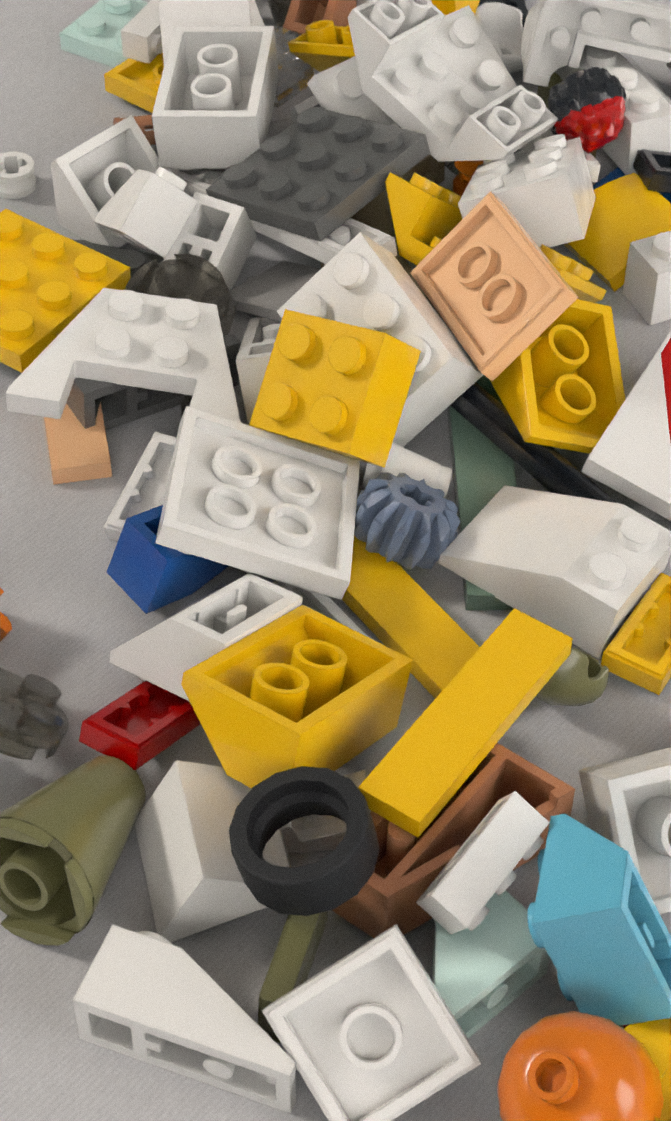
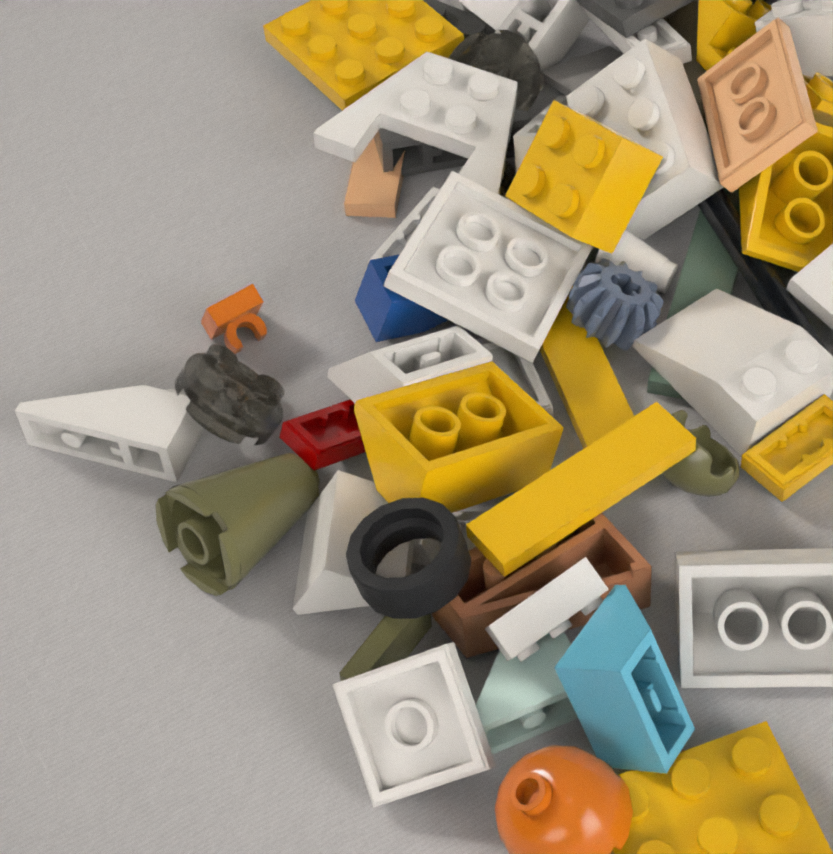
camera: 25 degrees right, 5 degrees up
(168, 1012) = (268, 662): white slope -> none

